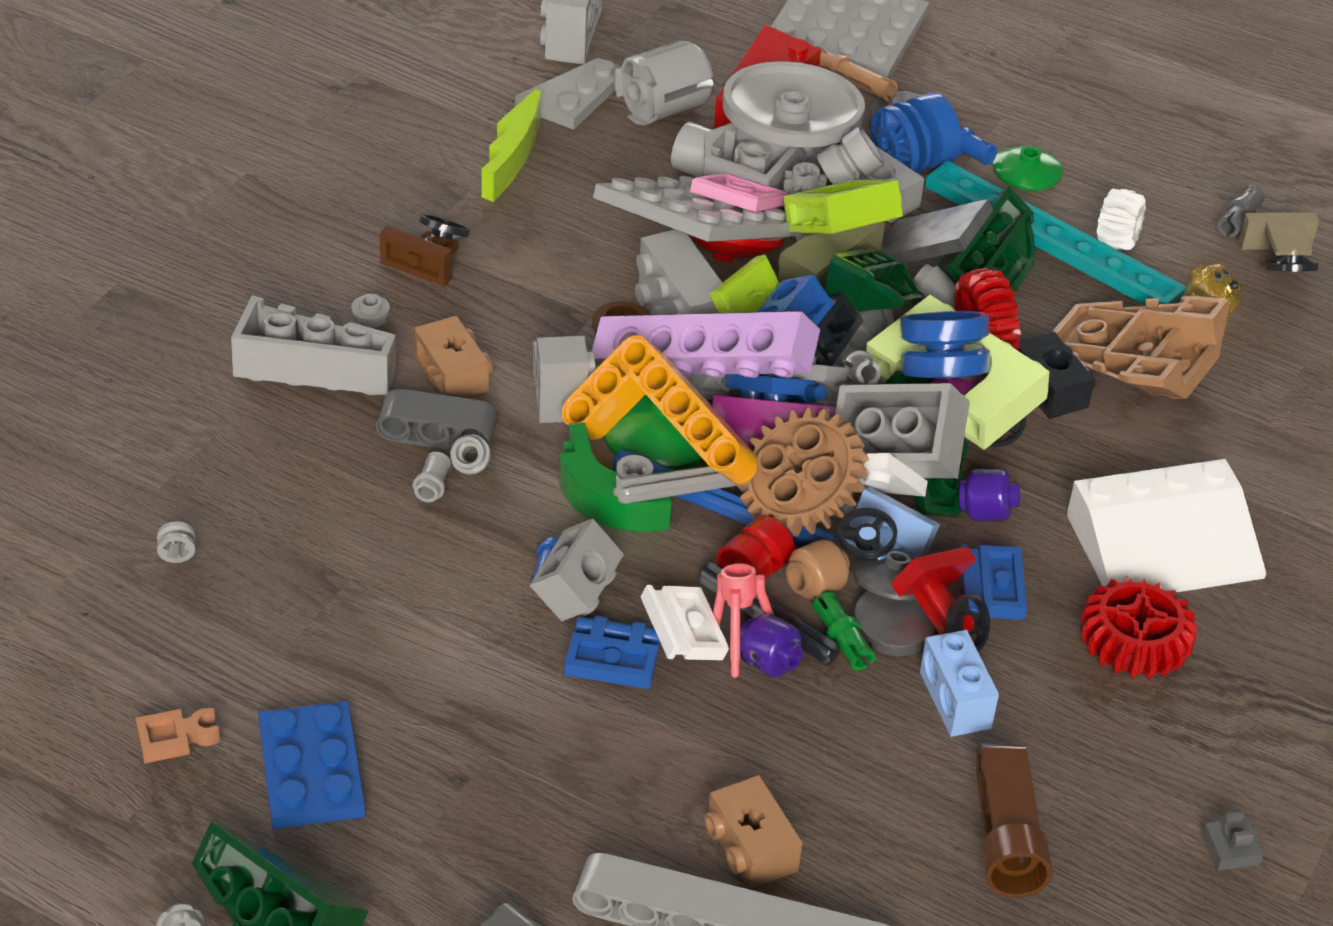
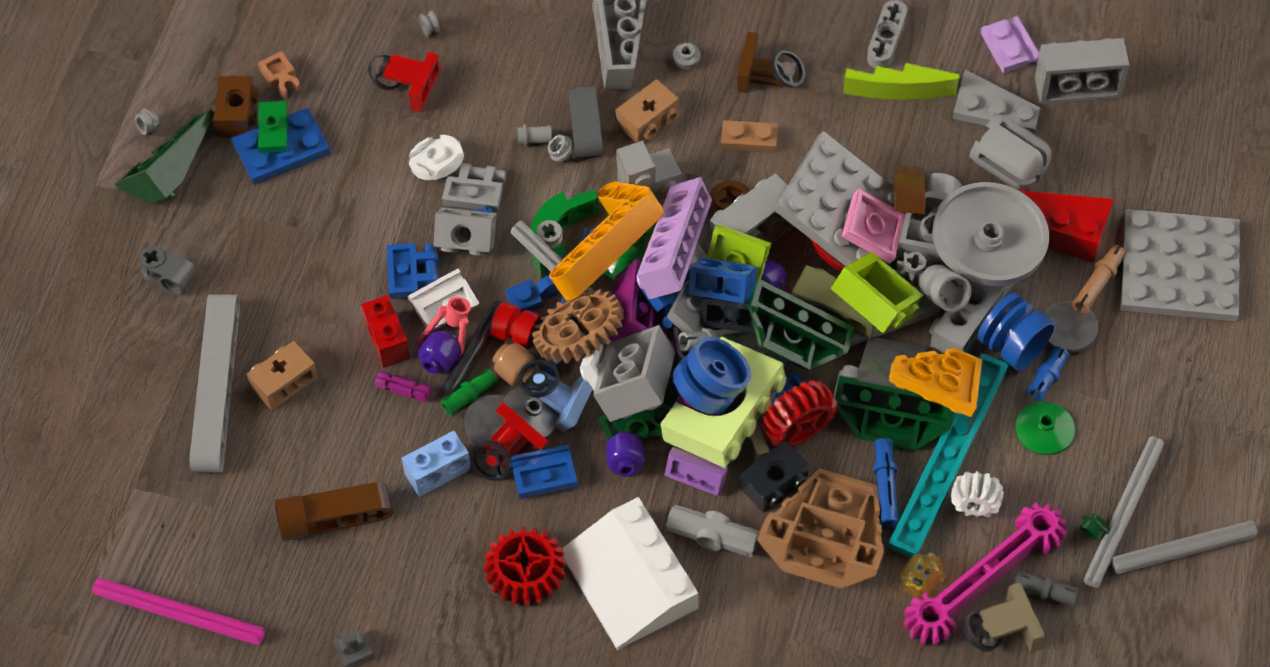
camera: 80 degrees right, 15 degrees up
(208, 791) = (235, 105): none -> reddish brown brick
(266, 568) = (410, 72): none -> red piece
(288, 749) = (272, 127): none -> green plate
(426, 583) = (436, 157): none -> white tile
(447, 151) = (883, 24): none -> light grey beam
(492, 60) = (1010, 44): none -> lavender plate
(504, 561) = (474, 193): none -> light grey plate
(526, 288) = (749, 136): none -> medium nougat plate
(698, 542) = (530, 296): none -> blue plate
(710, 144) = (909, 189): none -> reddish brown slope
(716, 694) = (385, 331): none -> red brick
(808, 703) = (402, 386): none -> magenta axle
(985, 184) = (942, 378): none -> light orange plate
(1030, 438) = (695, 471): none -> medium lavender plate
(1073, 290) = (885, 471): none -> blue pin
(1119, 442) = (712, 530): none -> light grey piece
(1153, 138) = (1123, 512): none -> light grey axle
(1171, 158) = (1094, 526): none -> dark green plate
(1204, 111) = (1184, 547): none -> light grey axle
(1265, 295) = (985, 574): none -> dark pink arm

